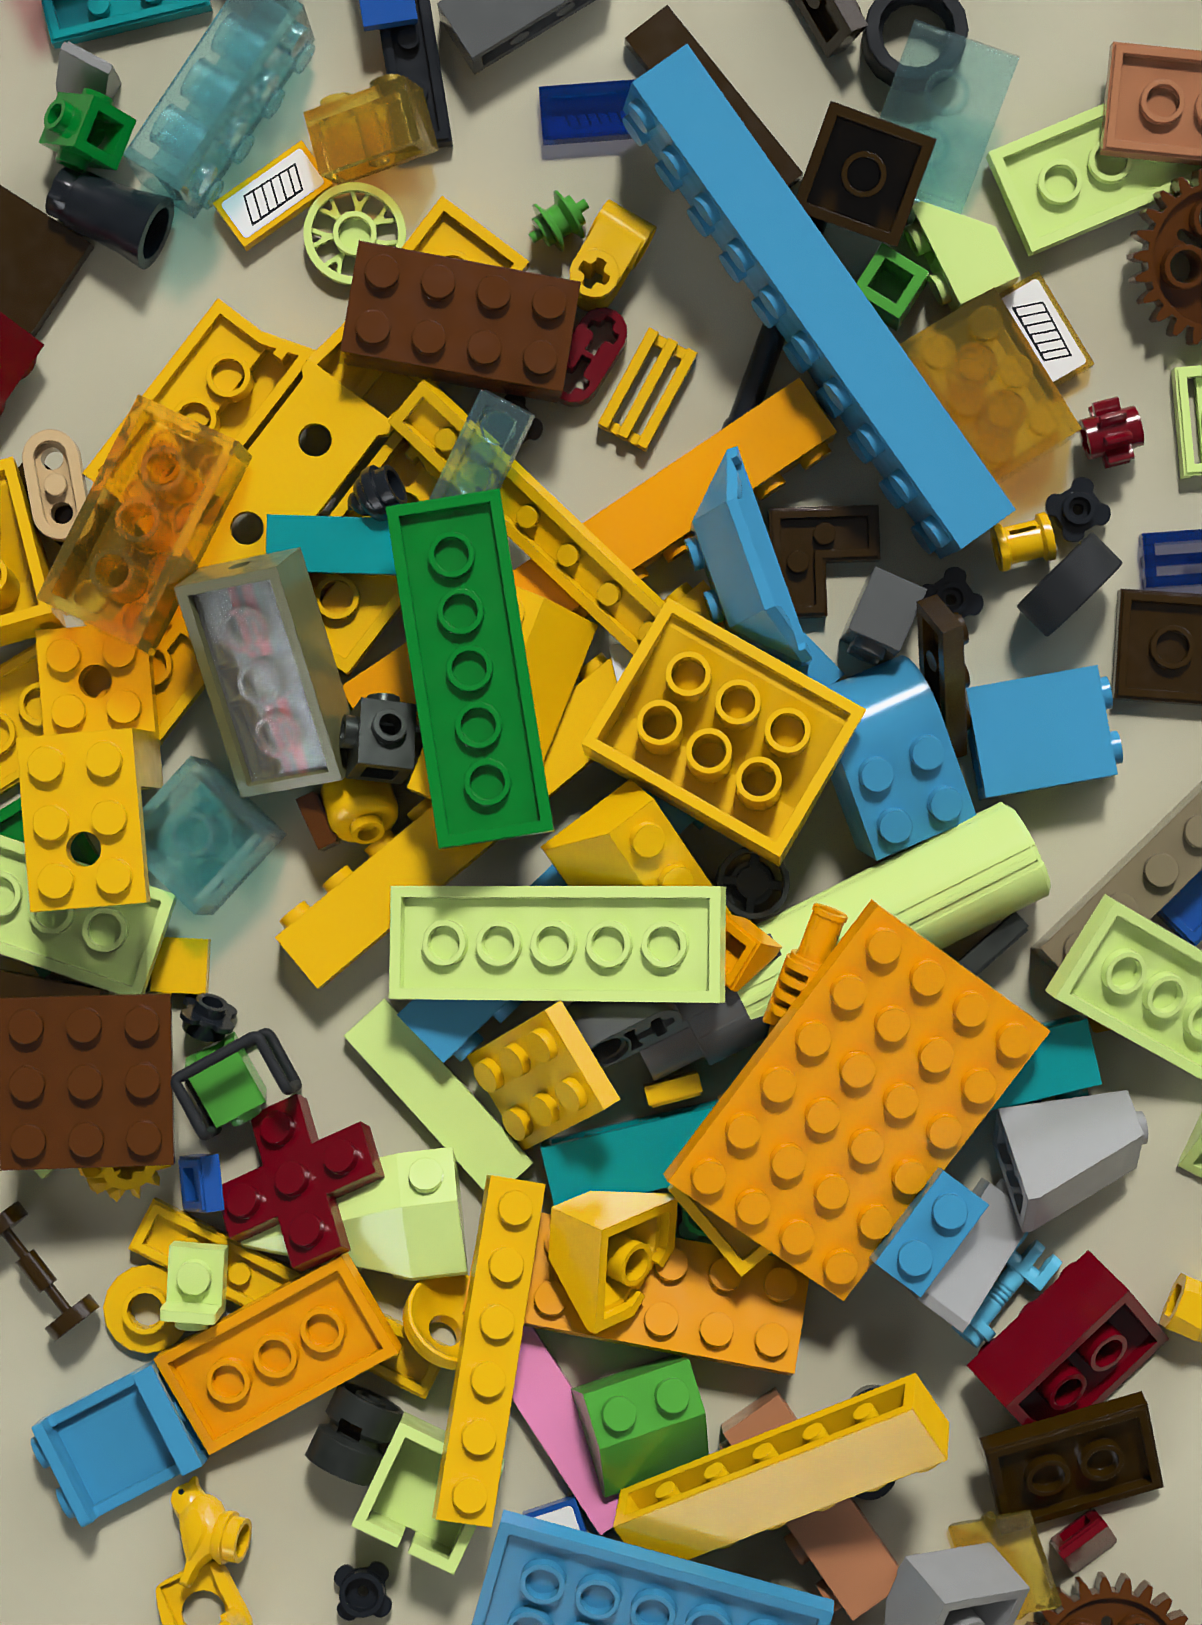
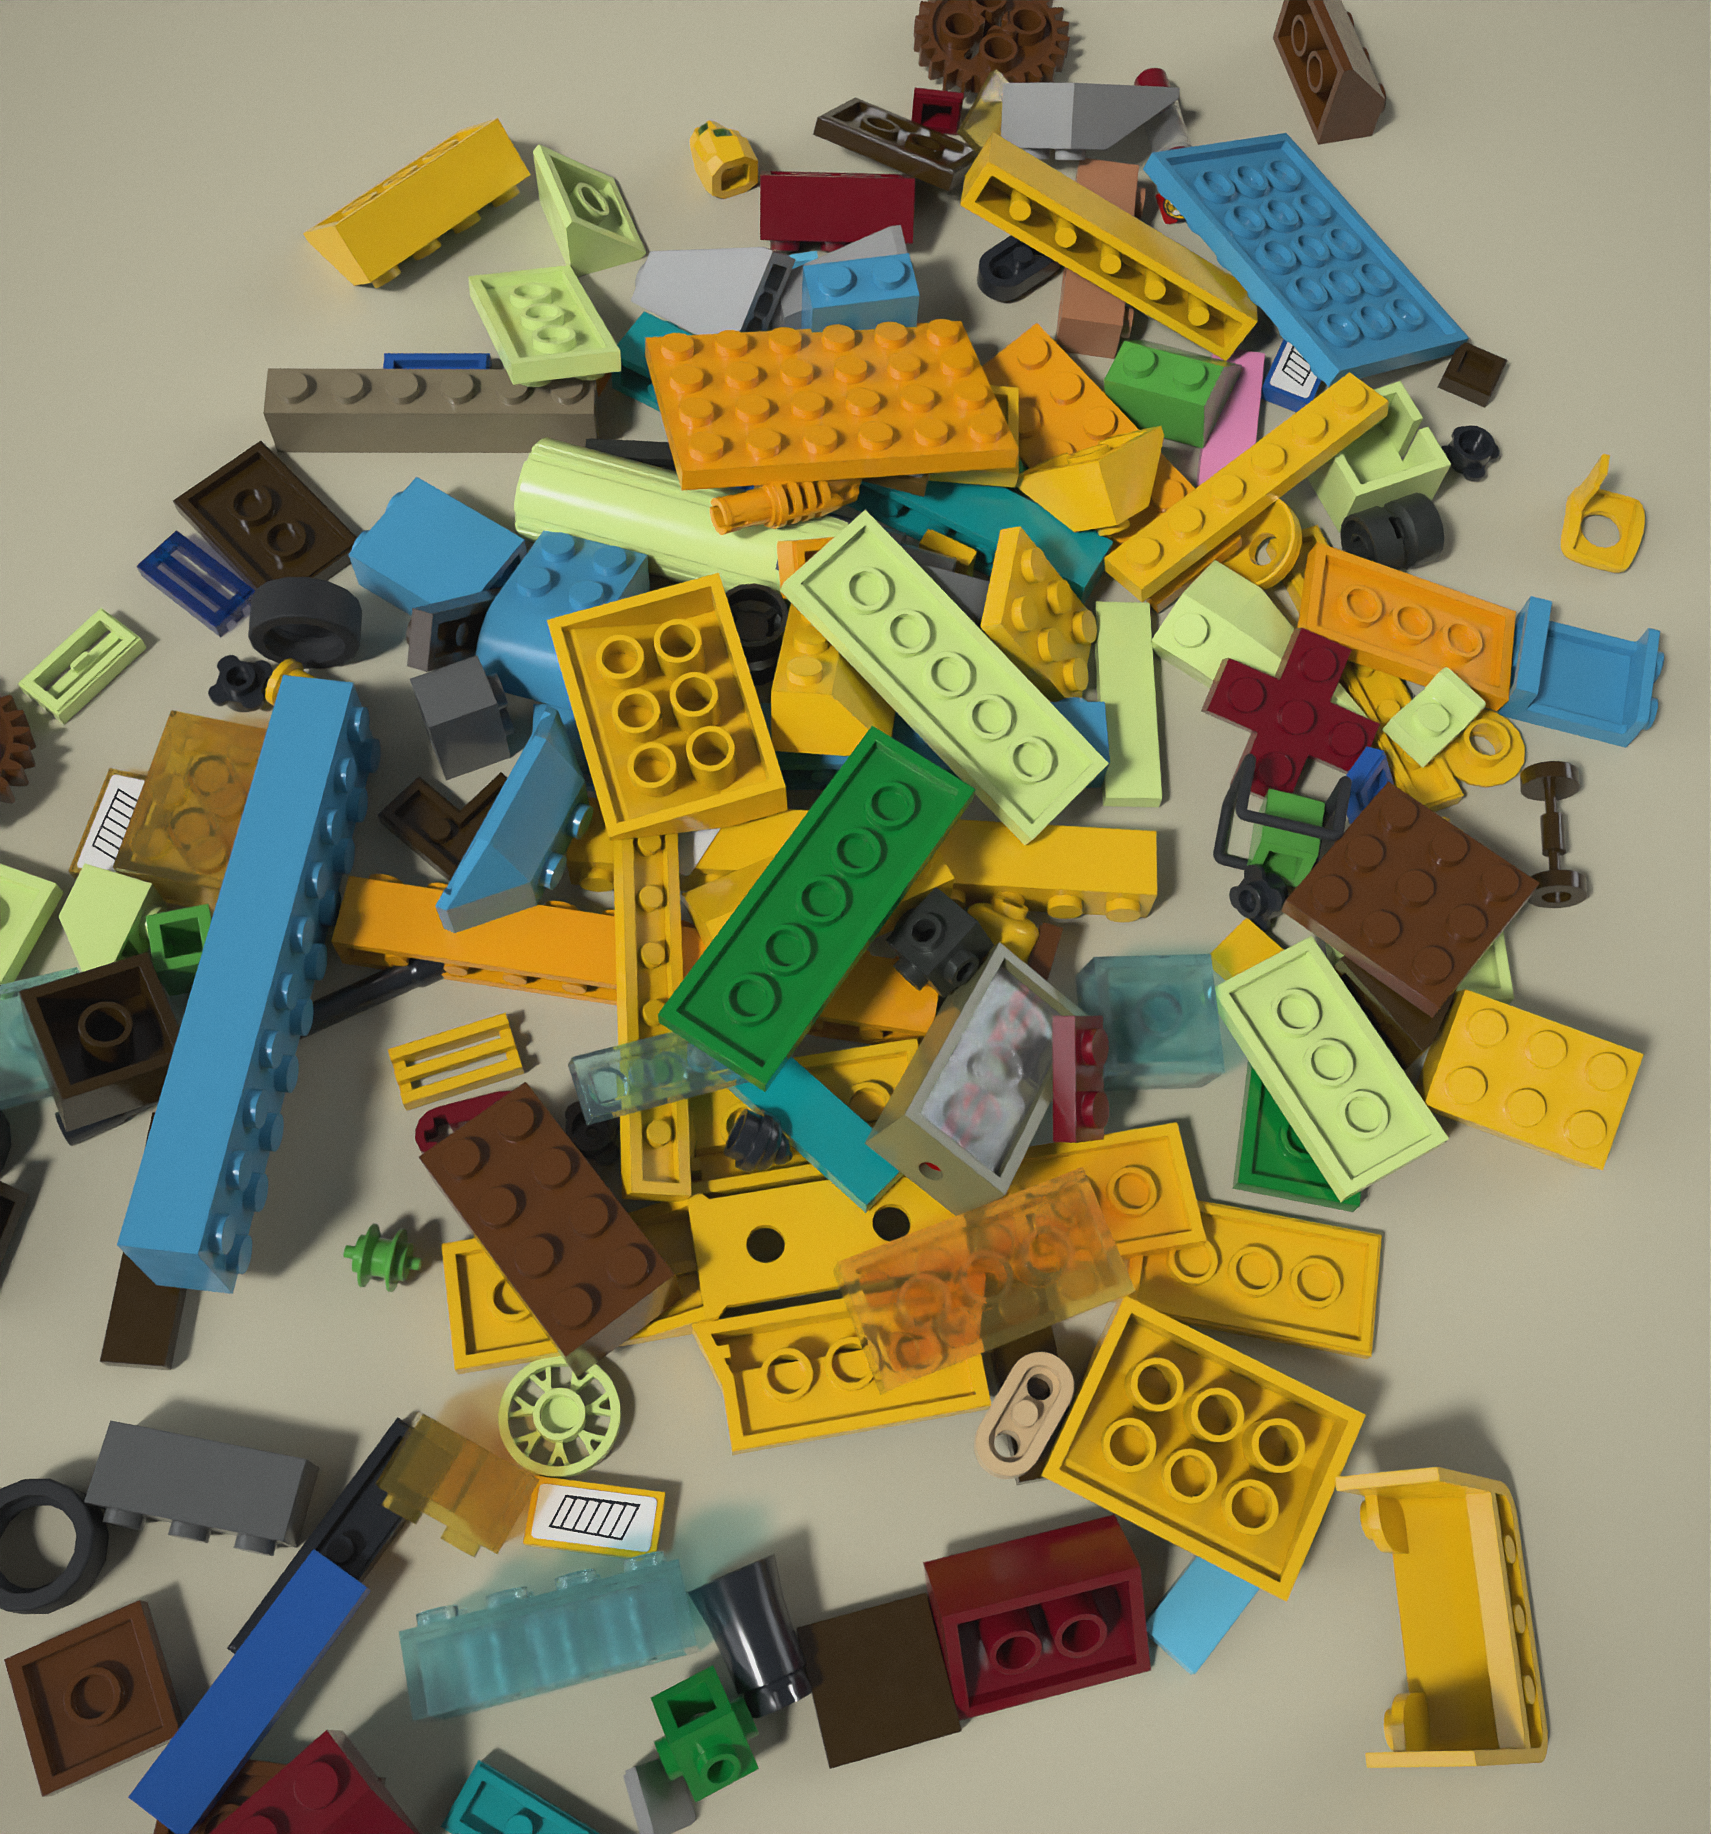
camera: 145 degrees left, 20 degrees down
(89, 772) = (1215, 1111): yellow bracket -> none
(206, 734) = (1078, 1082): none -> dark red plate
(207, 1530) = (1557, 567): yellow animal -> none
(583, 112) = (258, 1334): clear blue tile -> none
(610, 249) = (367, 1191): yellow piece -> none
(955, 584) = (386, 714): black plate -> none
(1111, 432) = (148, 702): dark red gear -> none

